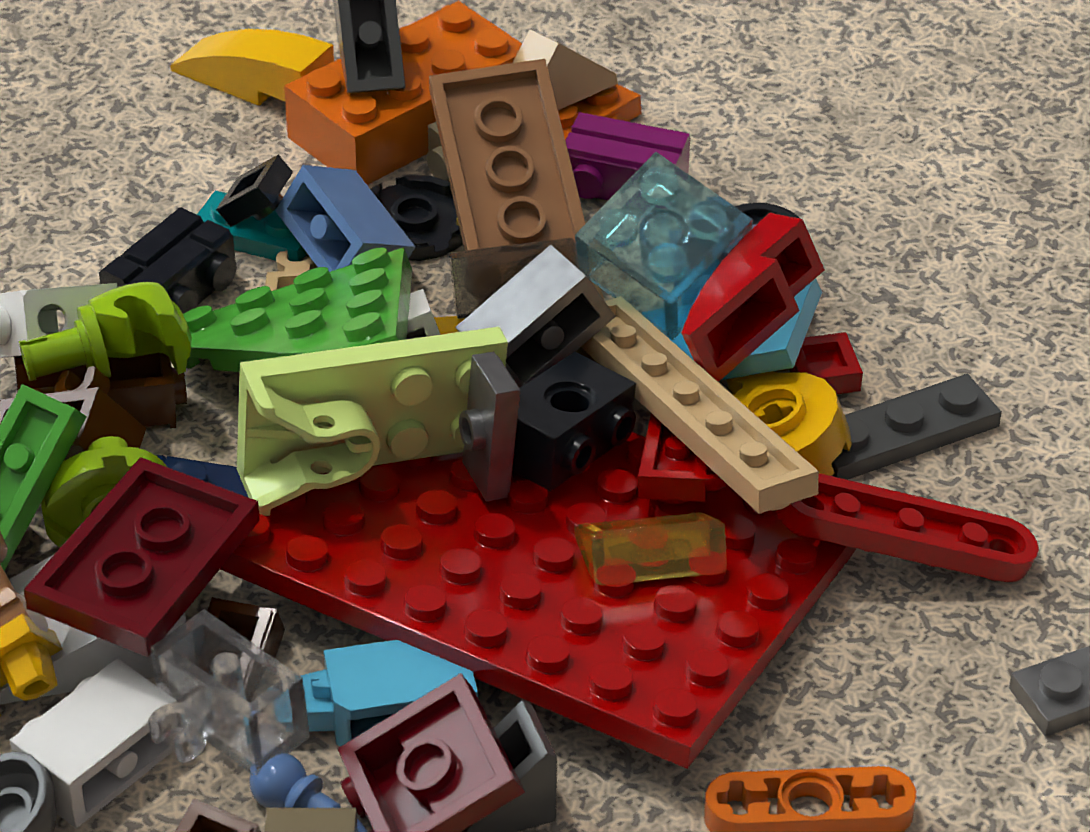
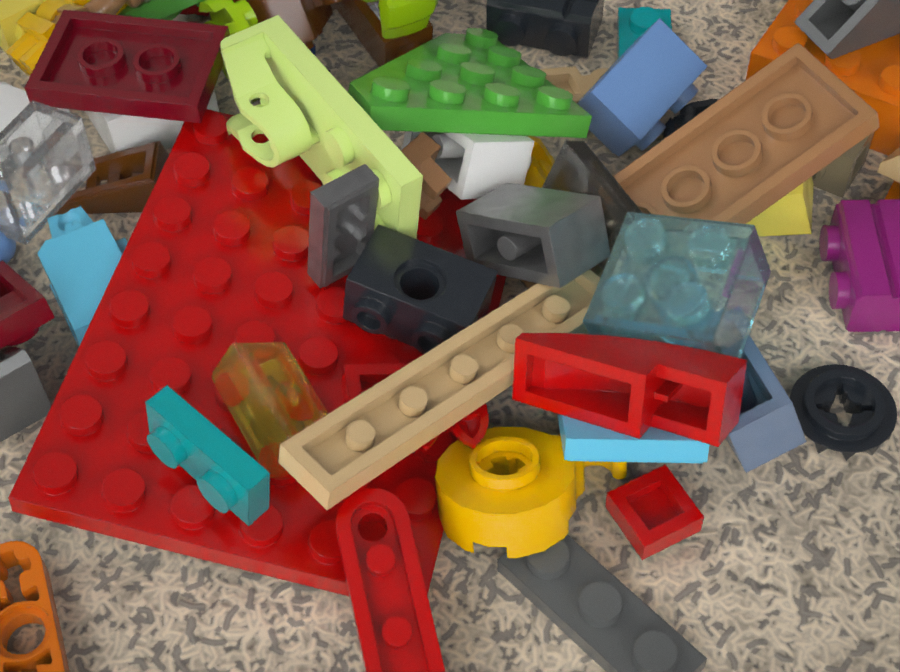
camera: 75 degrees right, 10 degrees up
(255, 192) = (642, 16): black plate -> none
(710, 580) = (222, 469): none -> teal plate

